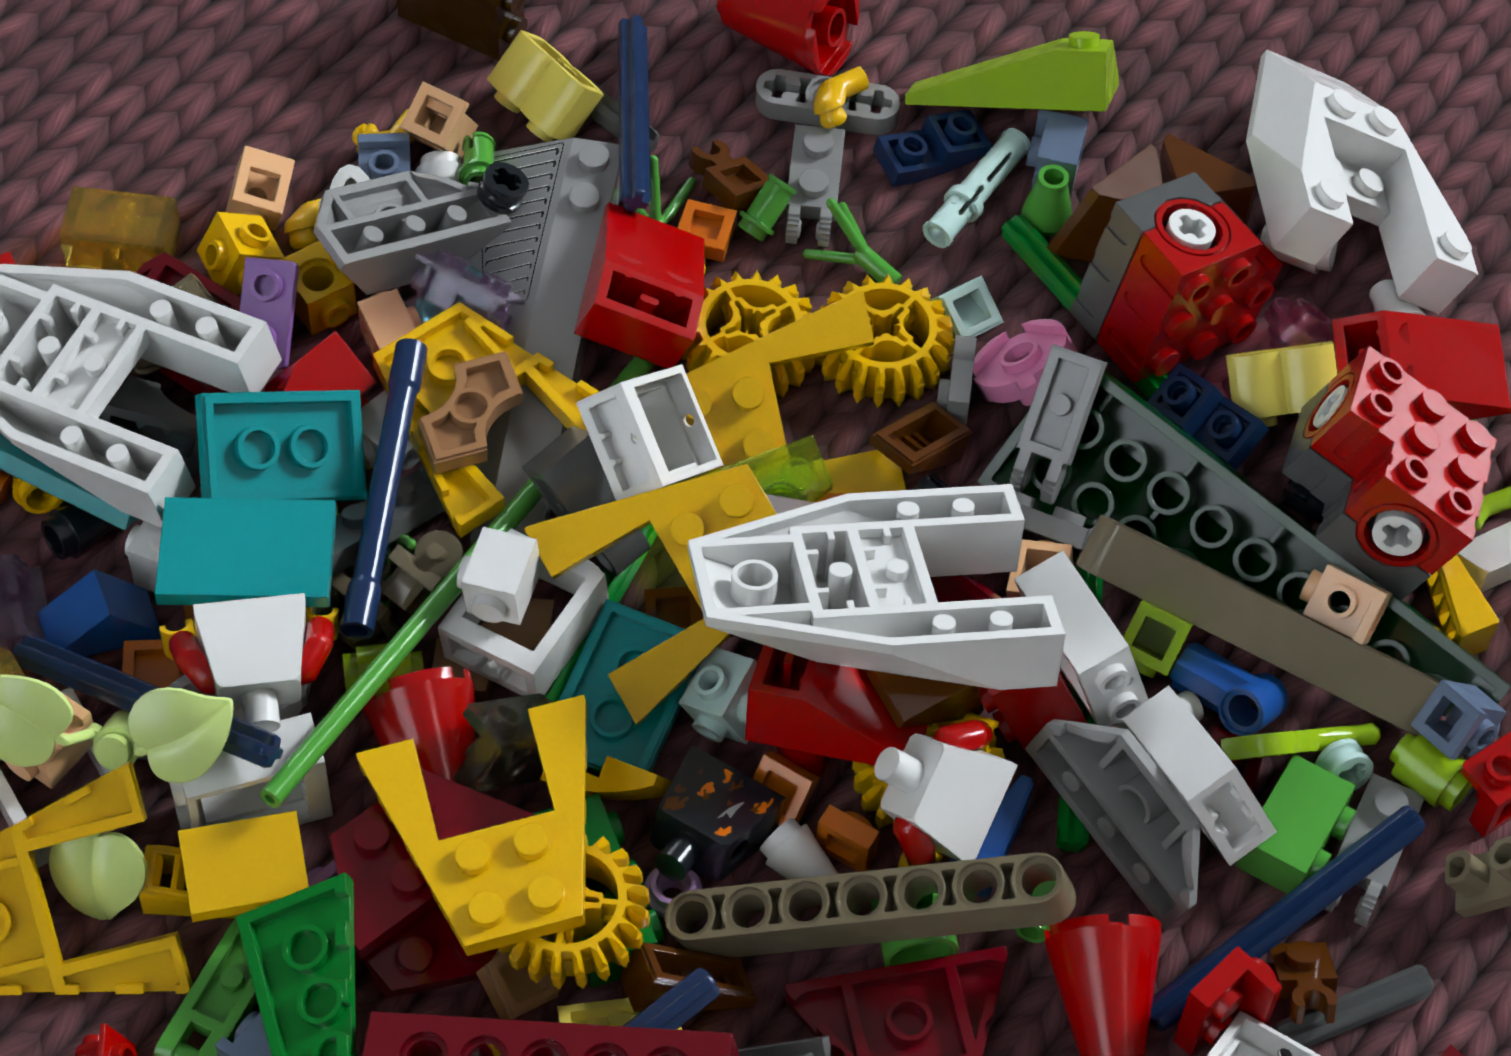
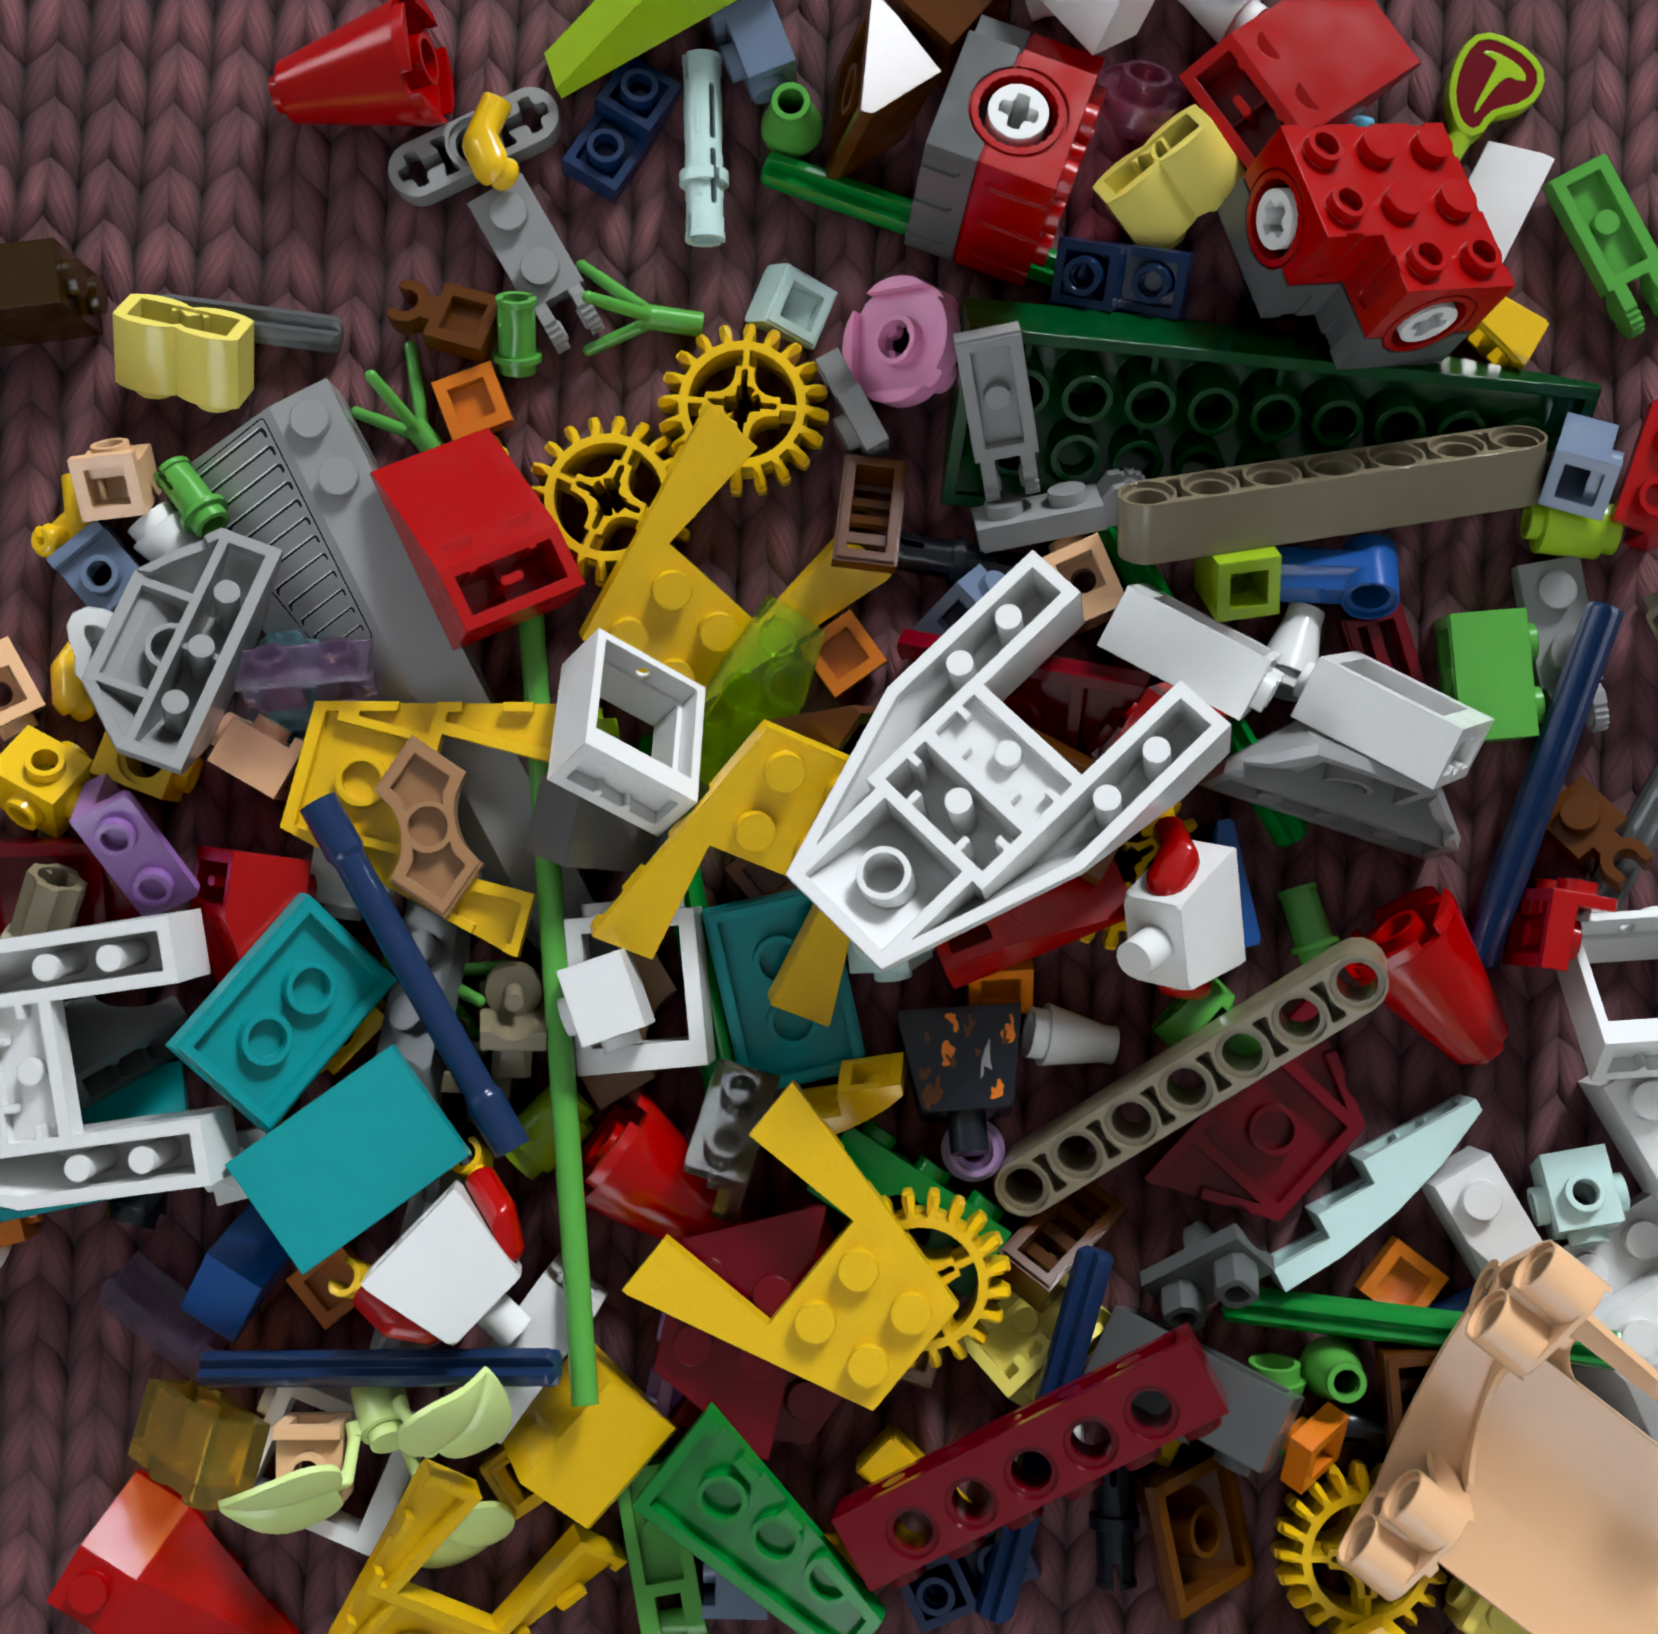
camera: 30 degrees left, 30 degrees up
(502, 188) = (253, 538): black bush -> none
(633, 114) = (304, 326): dark blue axle -> none
(848, 838) = (1095, 985): orange plate -> none
(1297, 741) = (1427, 614): lime piece -> none
(1346, 761) = (1490, 580): light aqua bush -> none
(1365, 607) = (1392, 398): light nougat brick -> none

